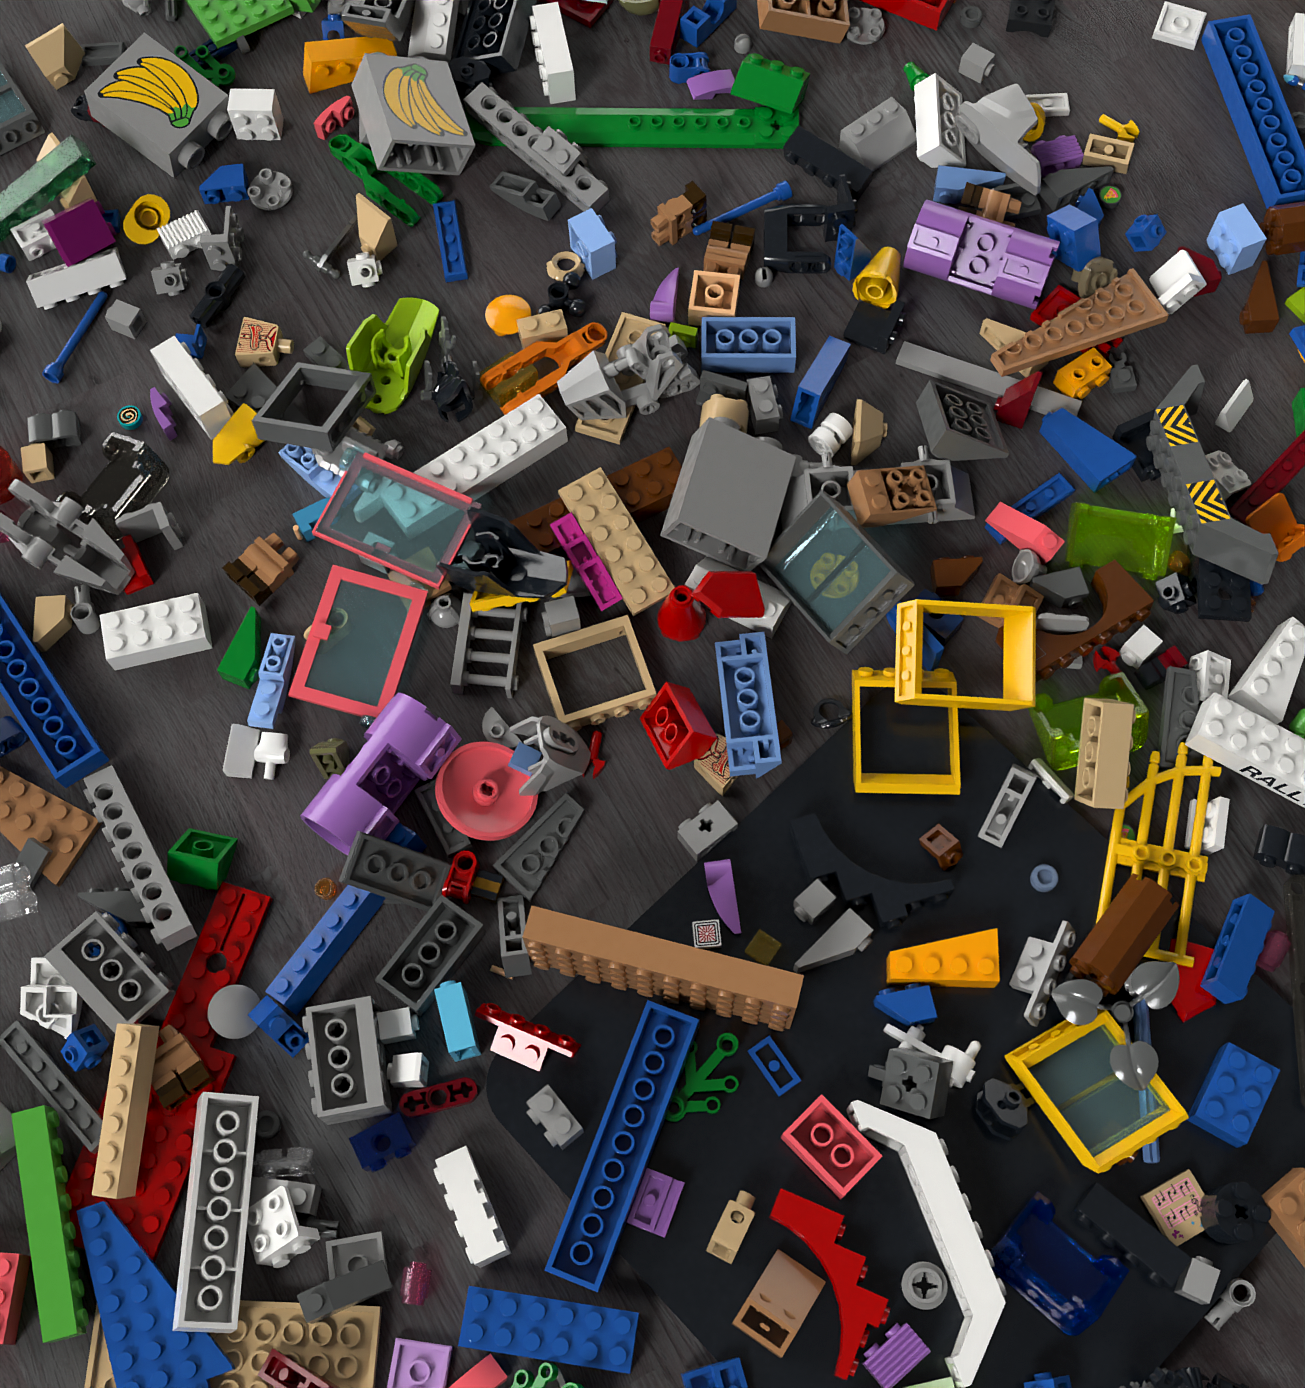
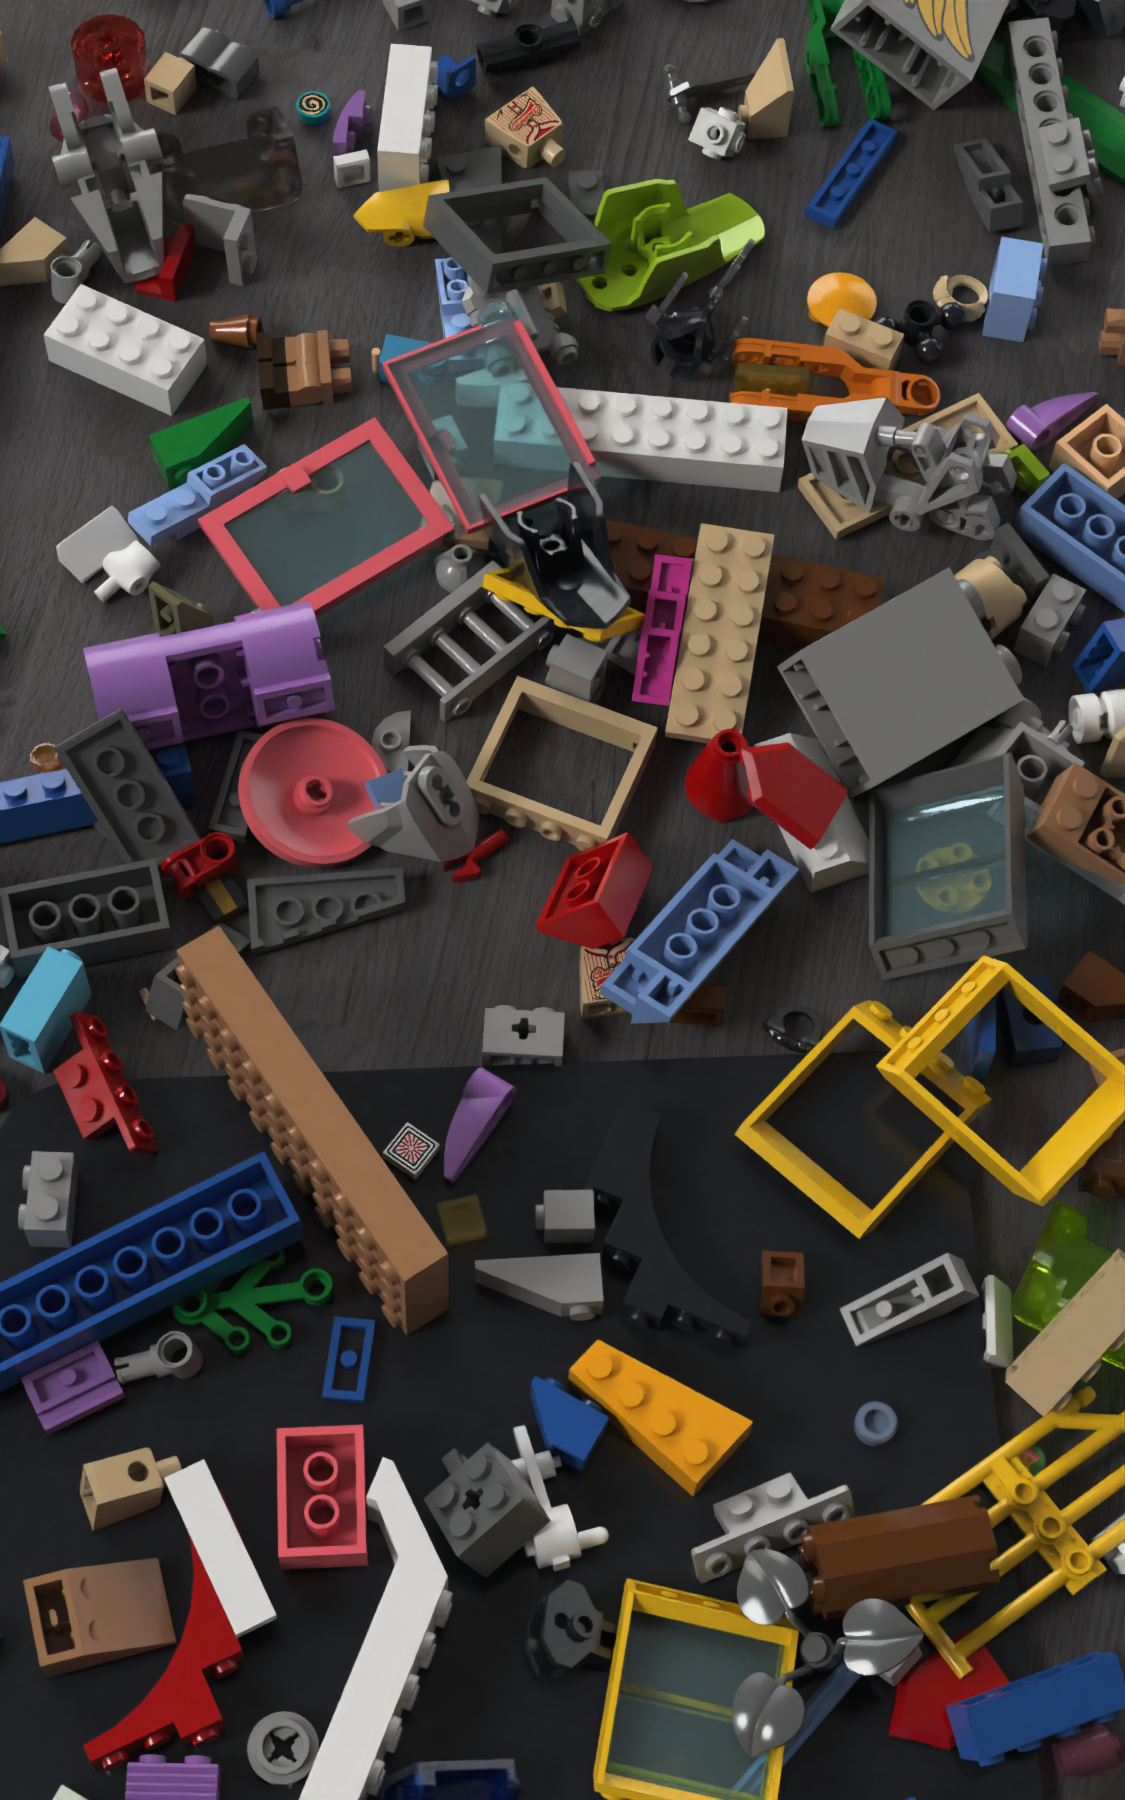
camera: 35 degrees right, 5 degrees down
(185, 436) = (352, 168): none -> white tile
(208, 573) = (237, 331): none -> dark orange cone
(684, 1151) = (159, 1360): none -> light grey pin
(810, 1217) = (220, 1548): none -> white tile

